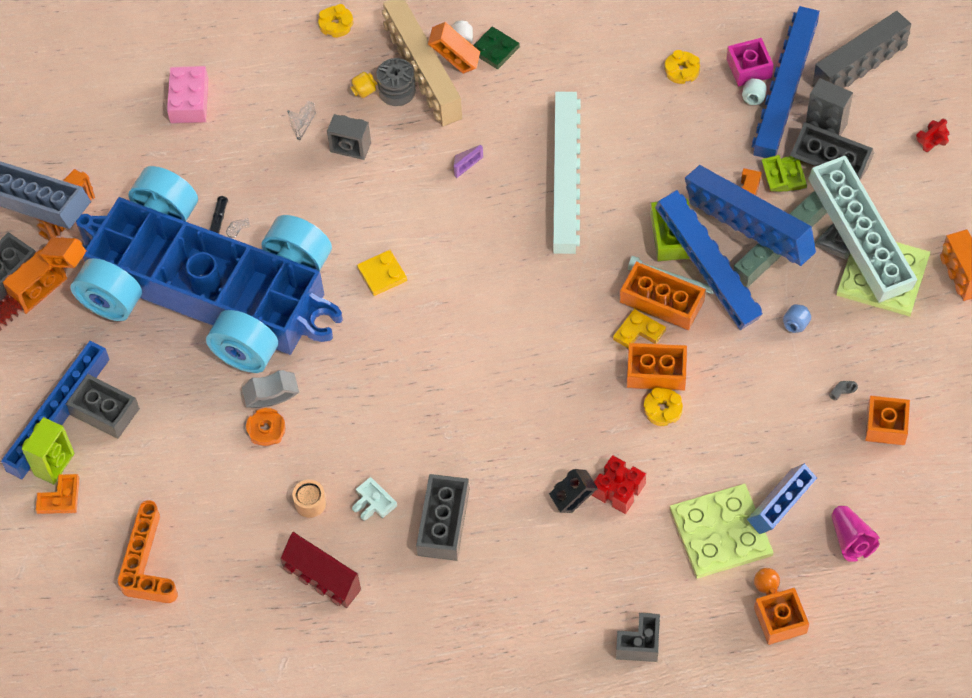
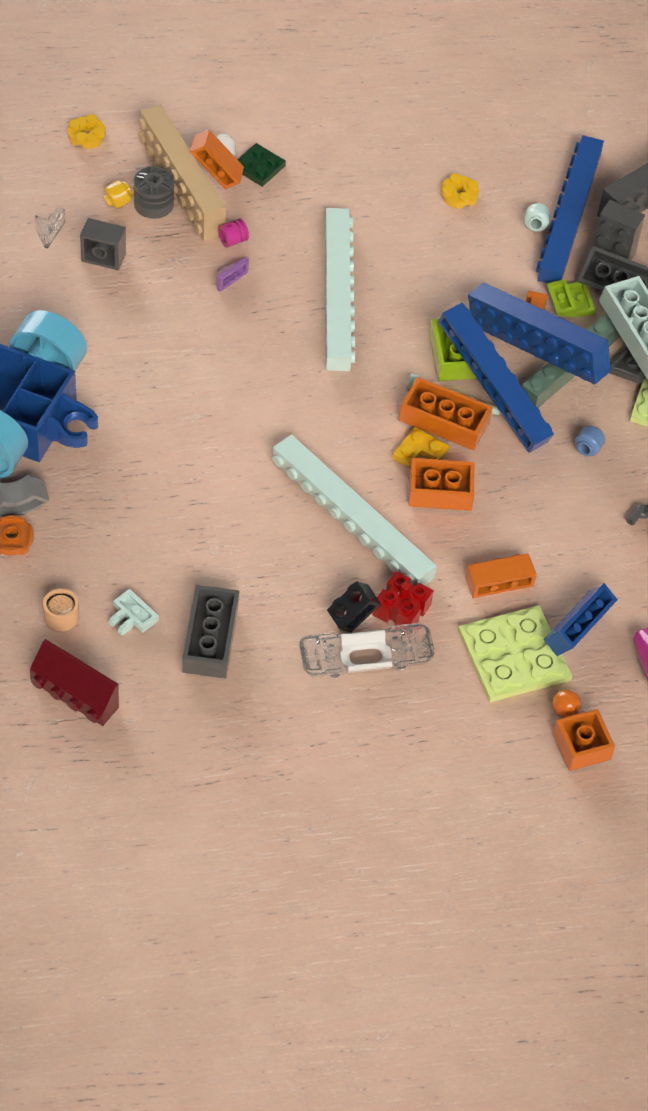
camera: 10 degrees left, 5 degrees down
(382, 272) = (139, 383): yellow plate -> none
(469, 119) = (233, 232): none -> dark pink piece
(575, 396) = (352, 511): none -> light aqua brick
(615, 527) = (400, 647): none -> clear piece
(641, 644) = (430, 766): dark grey brick -> none
(666, 416) = (451, 516): yellow plate -> none
(709, 454) = (500, 575): none -> orange brick
(749, 61) = (531, 186): dark pink brick -> none

